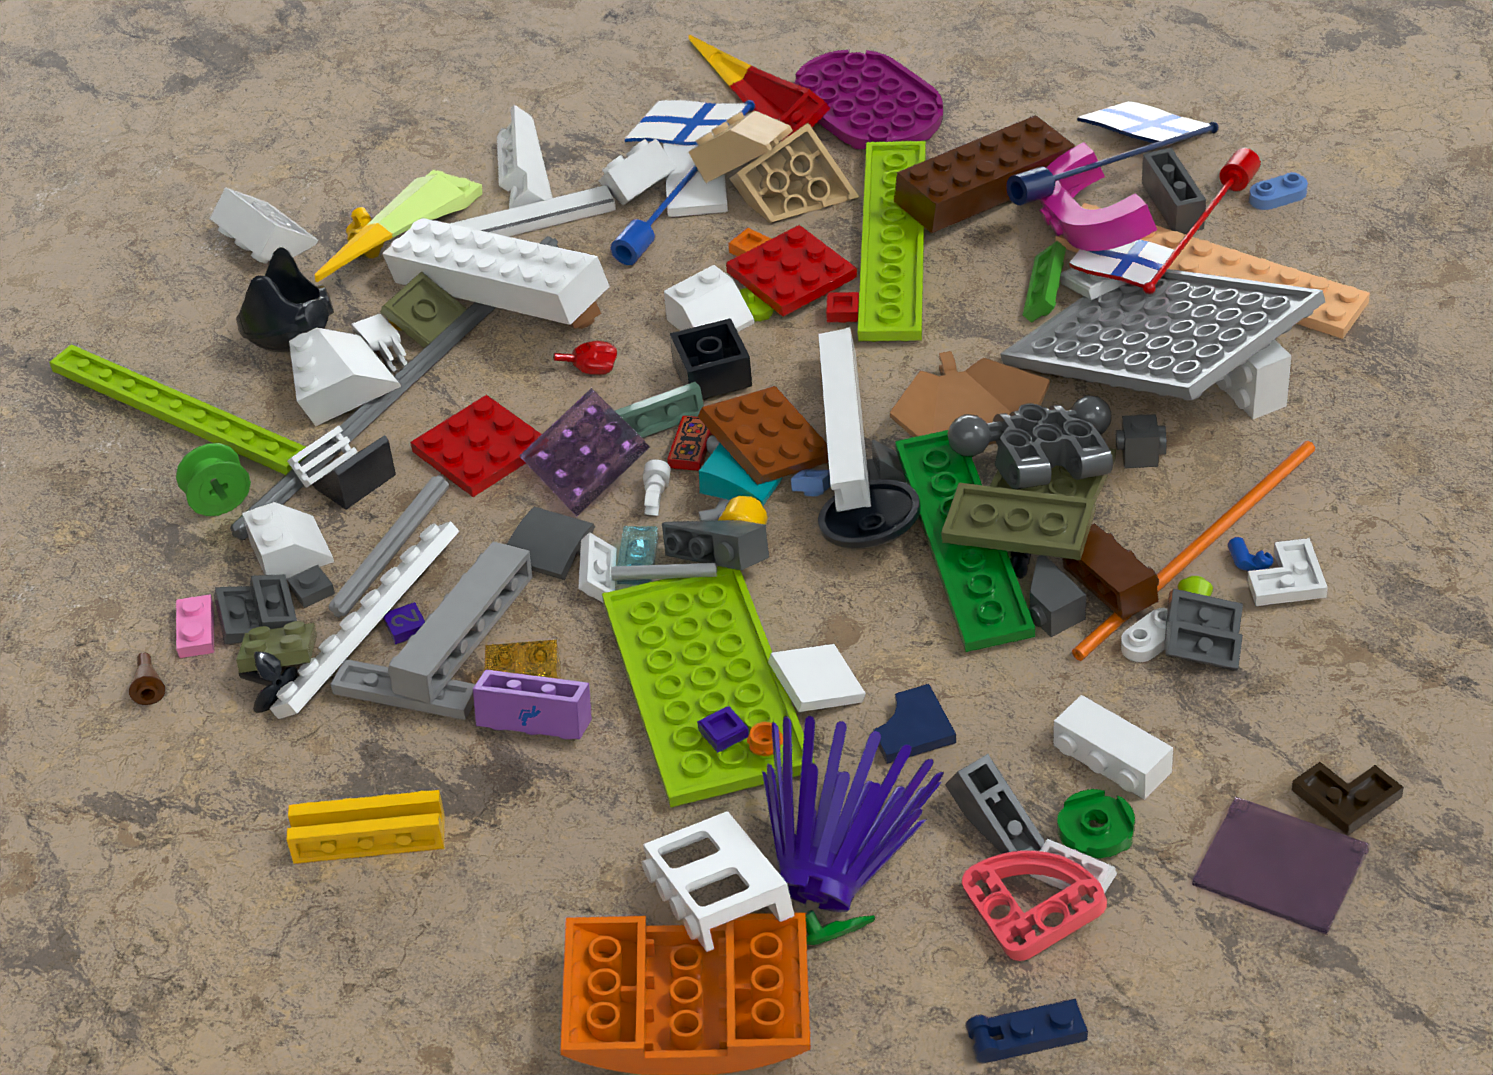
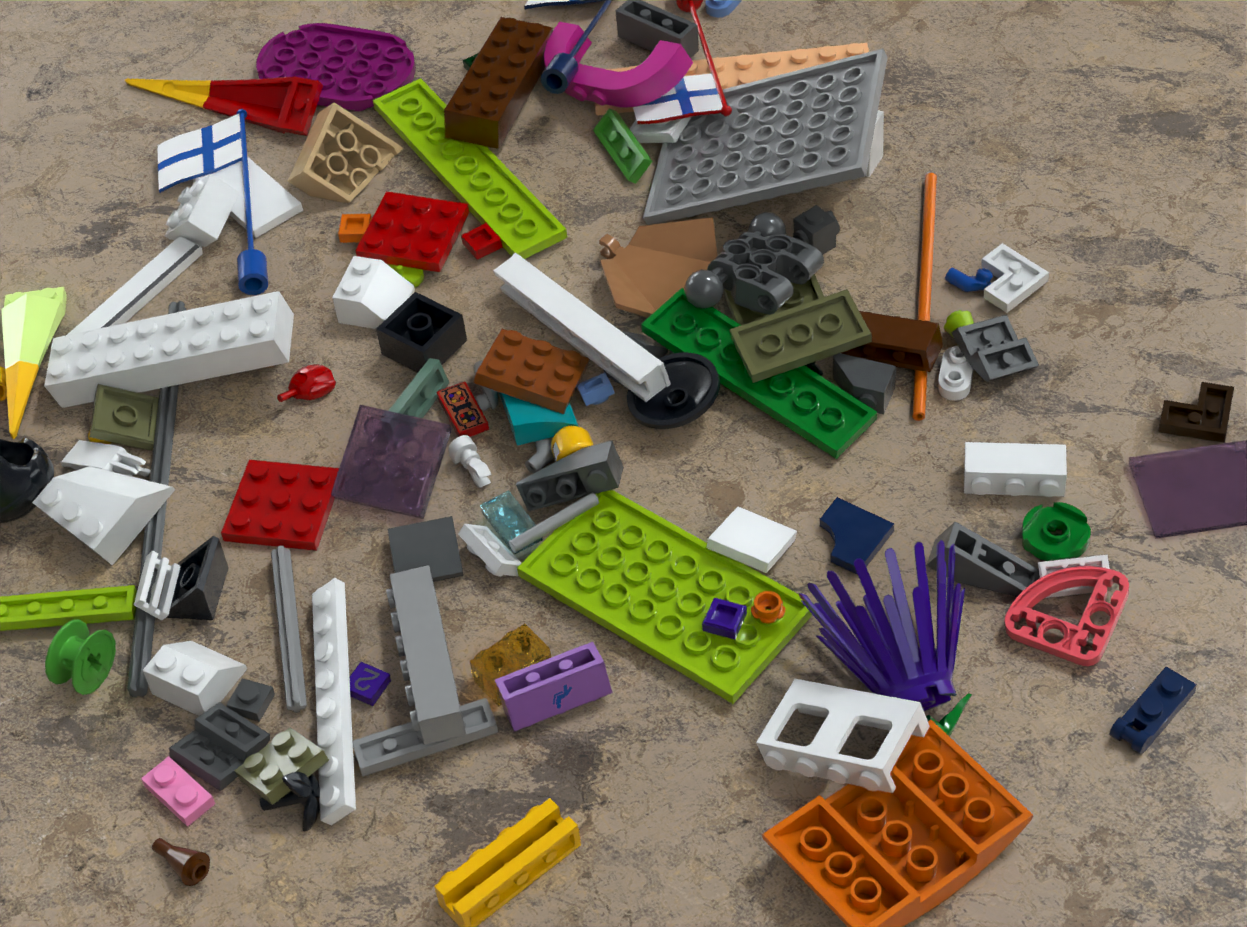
camera: 35 degrees left, 5 degrees up
(521, 161) = (81, 252): white wedge -> none
(736, 143) = (279, 147): tan wedge -> none

